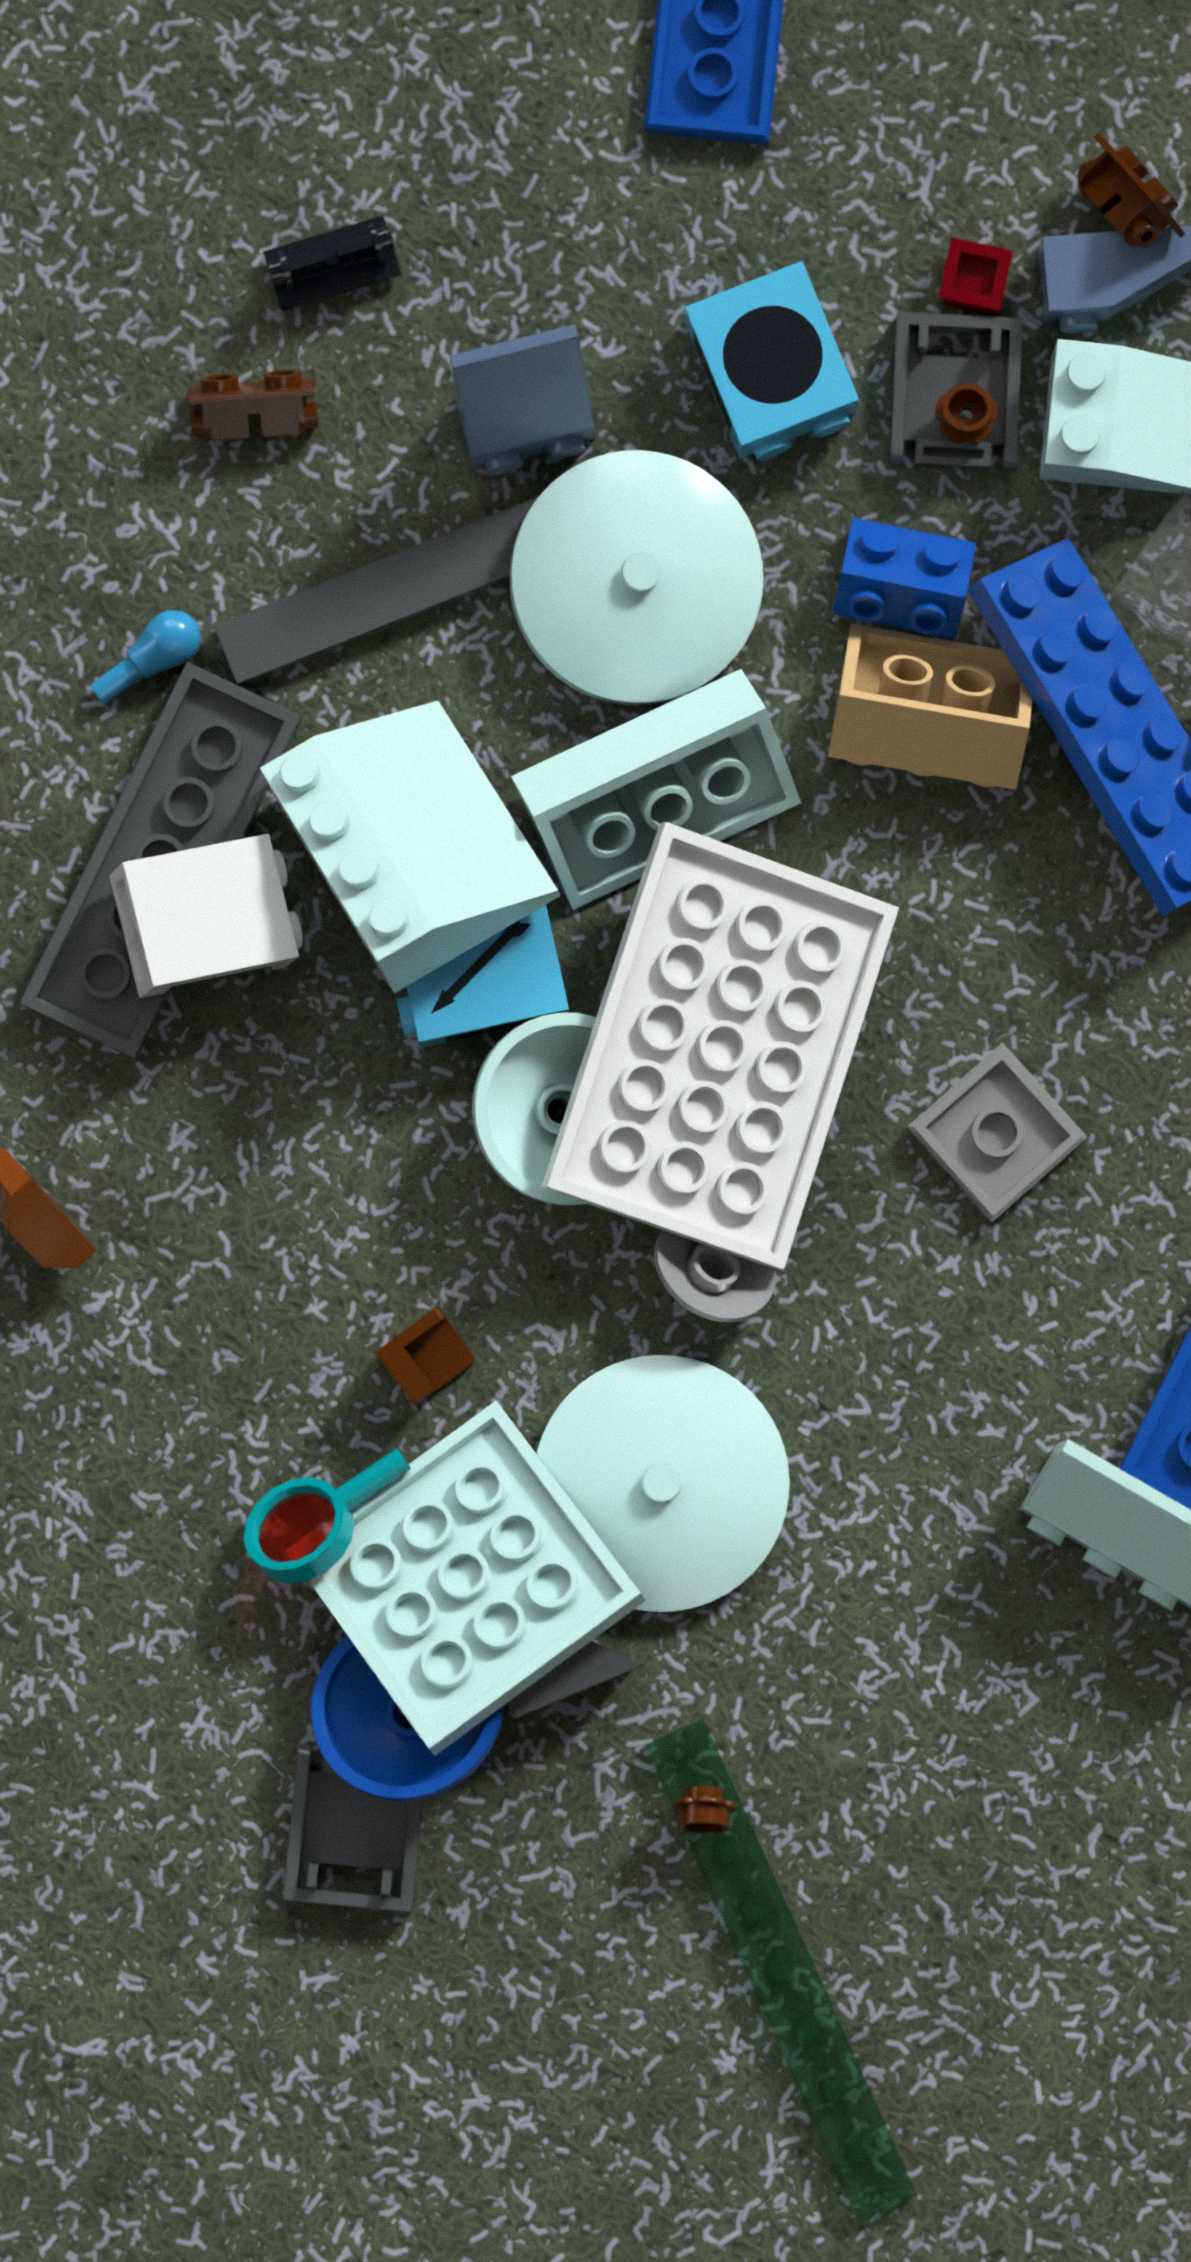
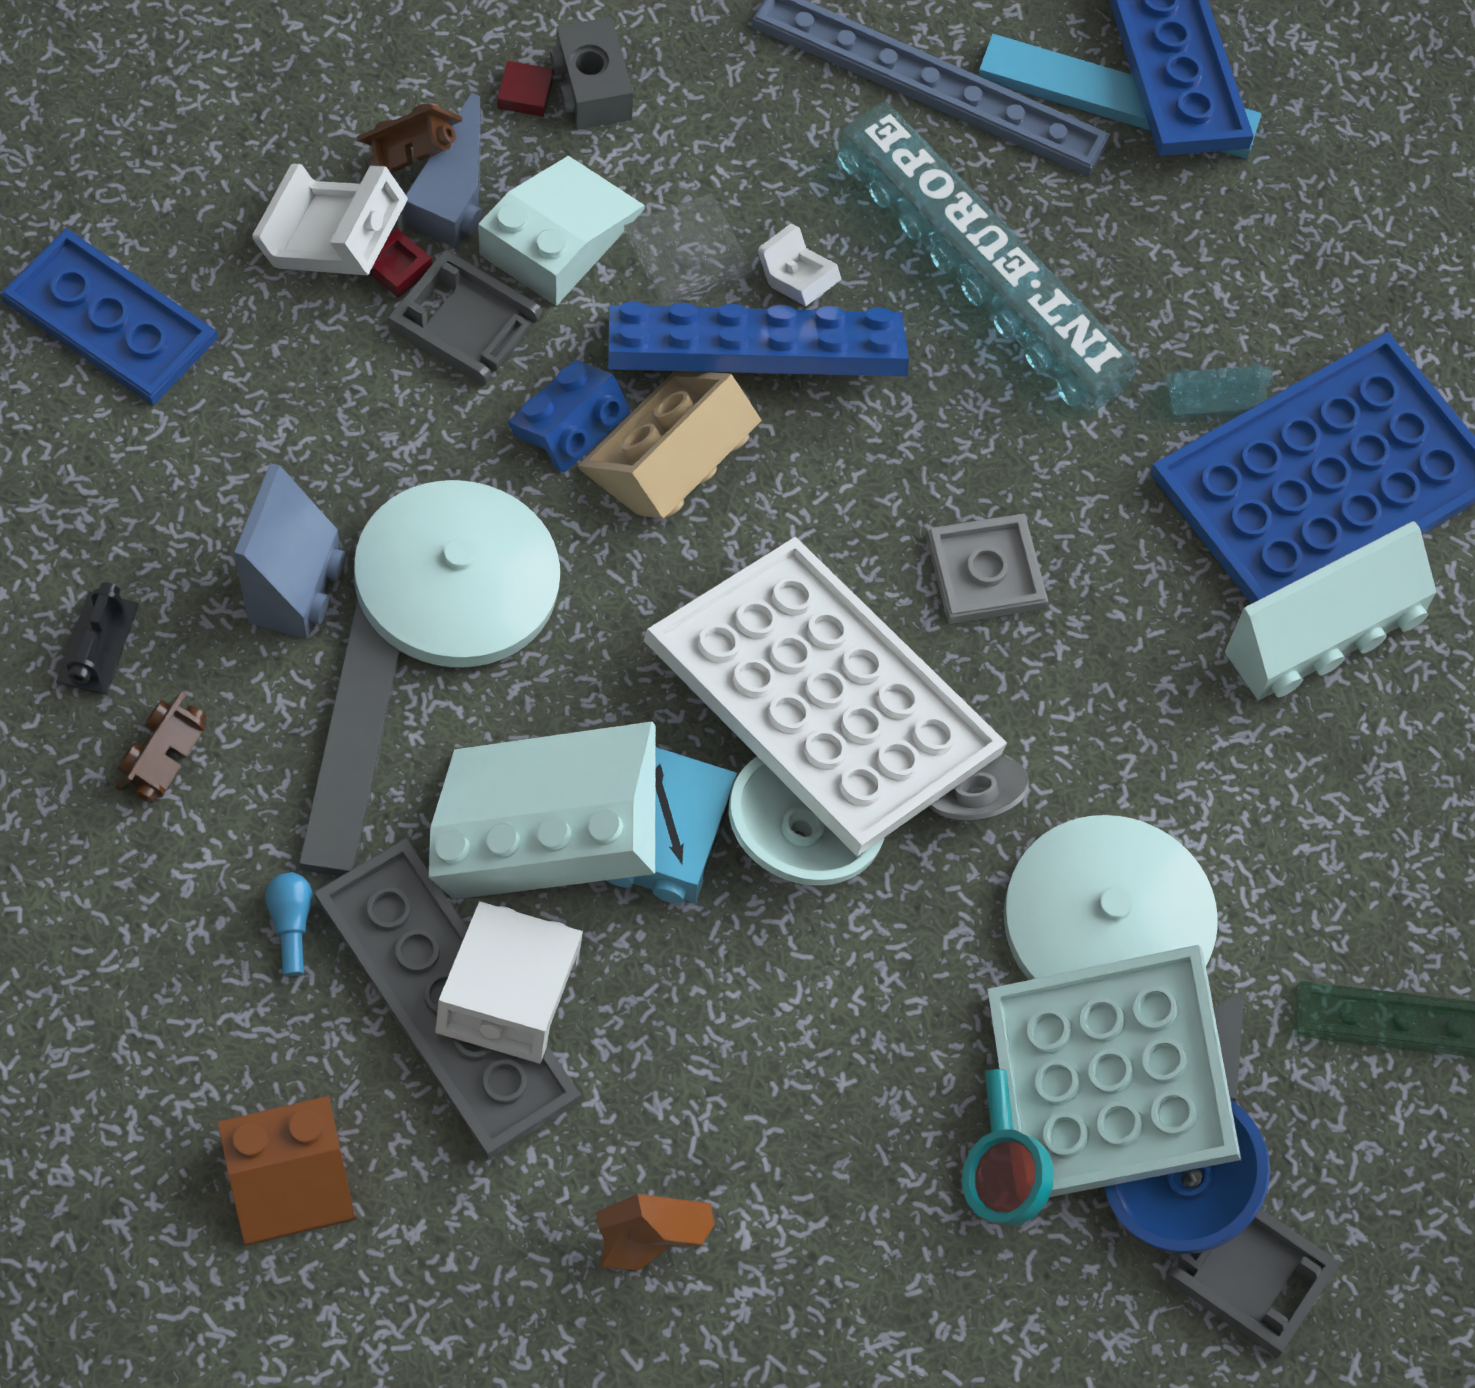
camera: 65 degrees left, 20 degrees down
(426, 1356) = (926, 1023): reddish brown panel -> none
(689, 763) = (599, 658): light aqua slope -> none
(703, 1810) = (1372, 1010): reddish brown plate -> none
(772, 362) = (368, 408): medium azure brick -> none
(968, 174) = (329, 223): none -> white panel
(970, 398) = (483, 302): reddish brown plate -> none

